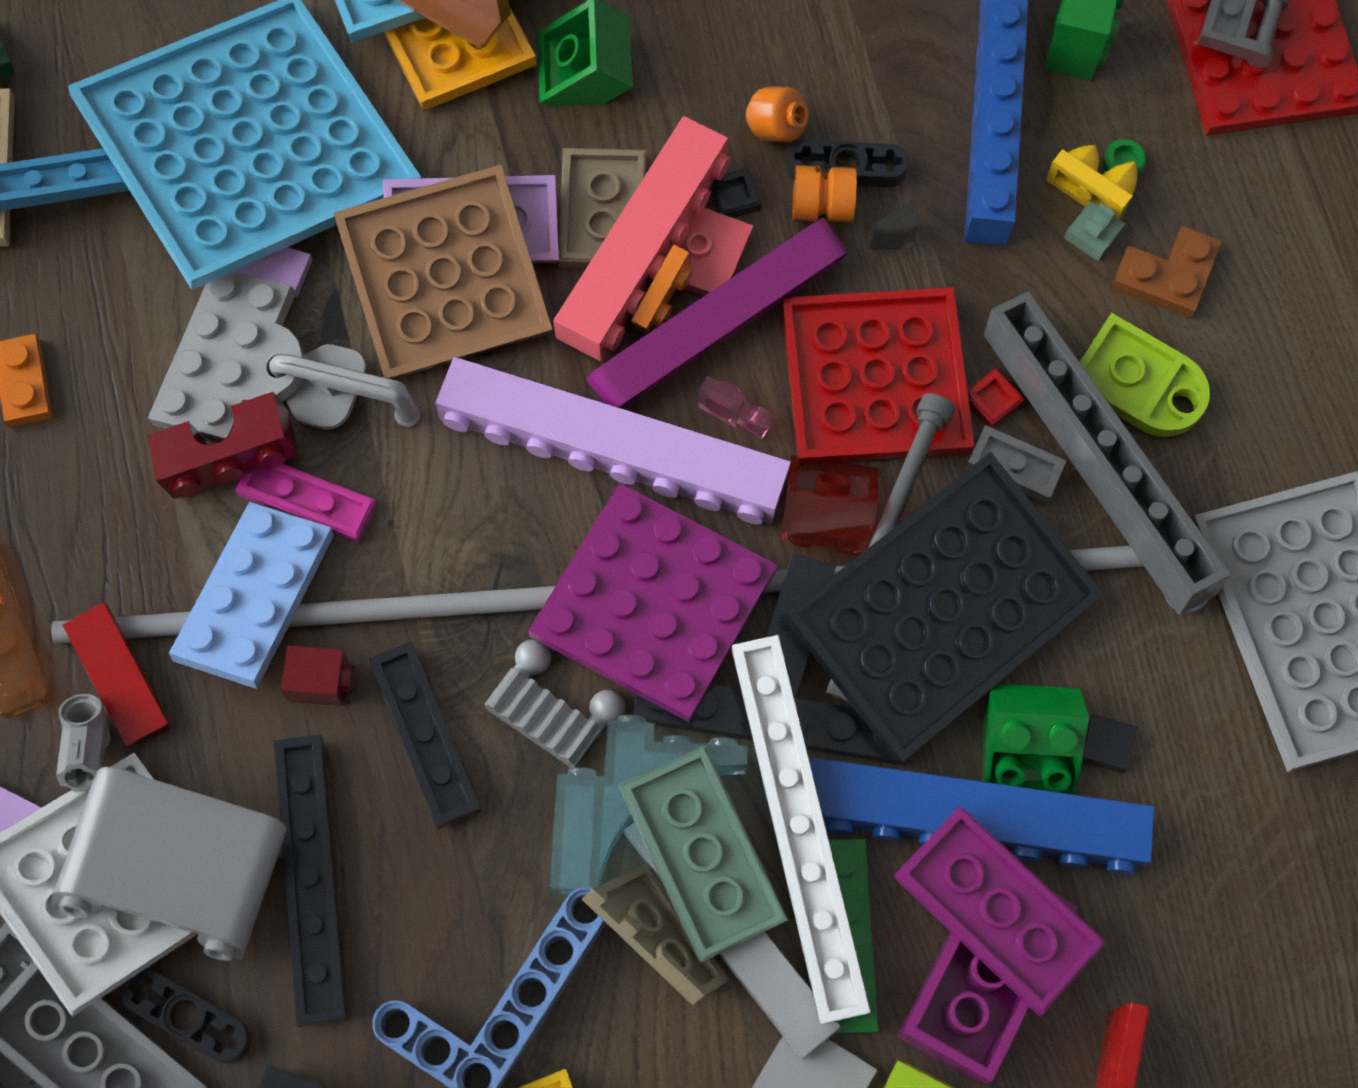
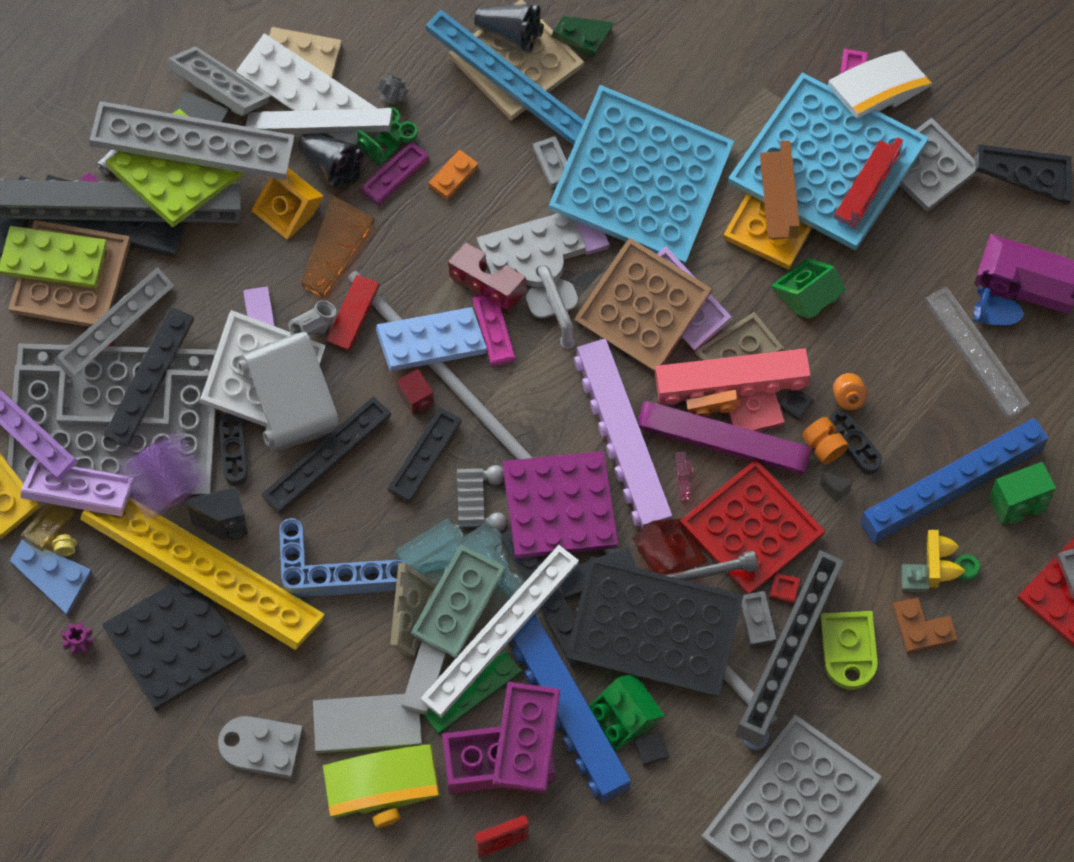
camera: 55 degrees right, 5 degrees down
(119, 236) = (550, 159): none -> light grey plate

